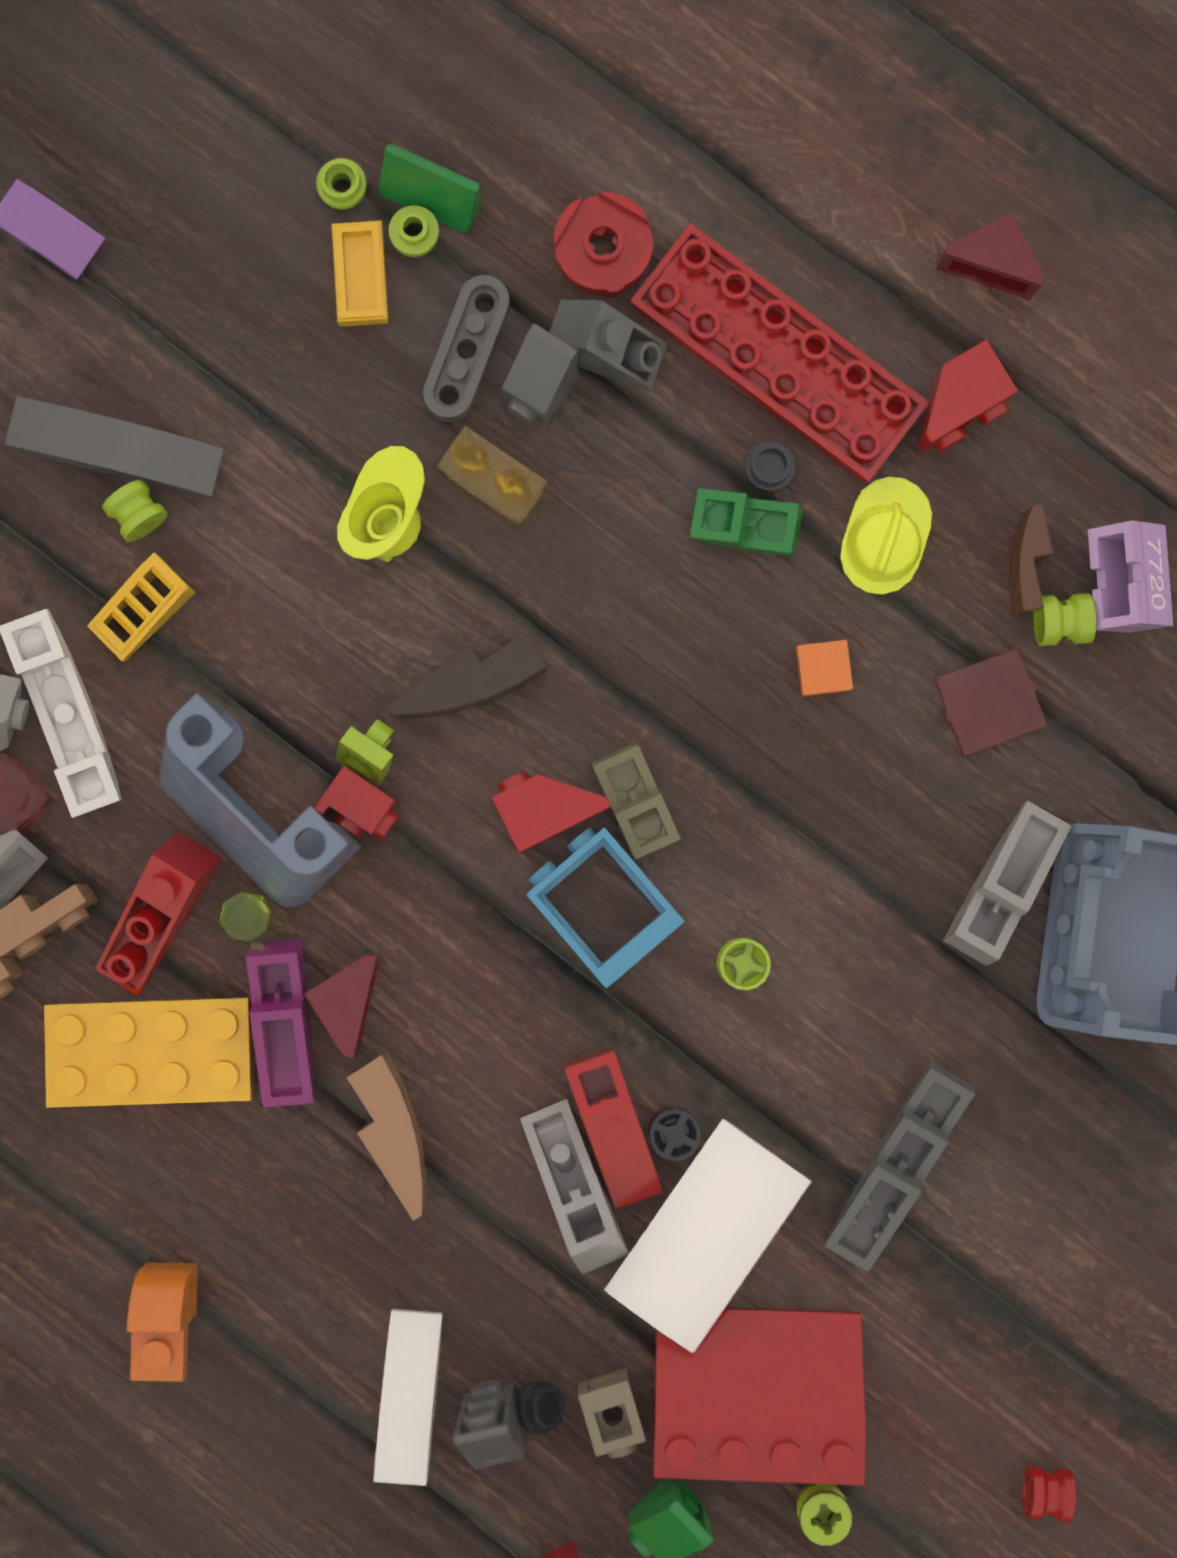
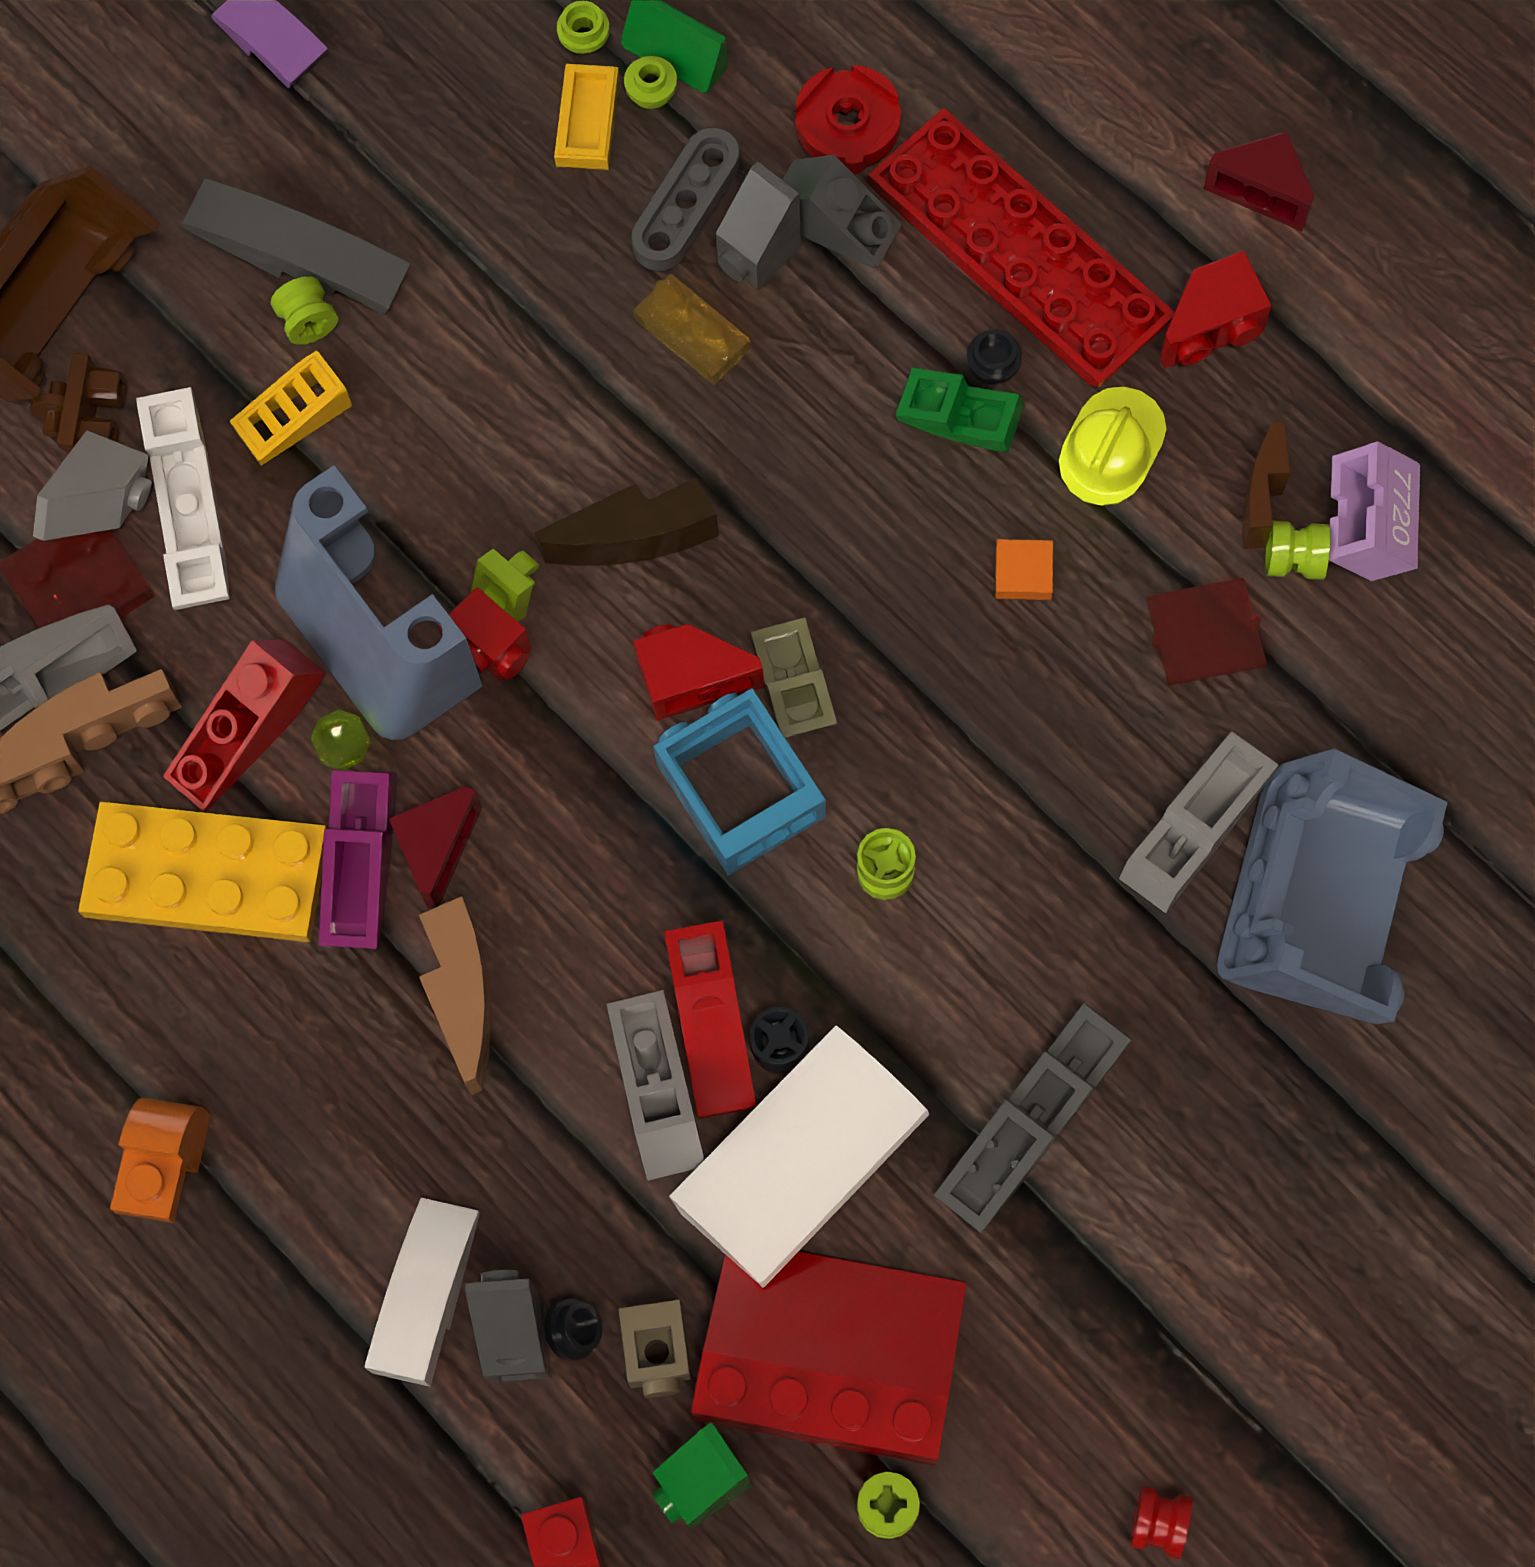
camera: 15 degrees right, 15 degrees down
(383, 506) = (568, 341): neon yellow piece -> none

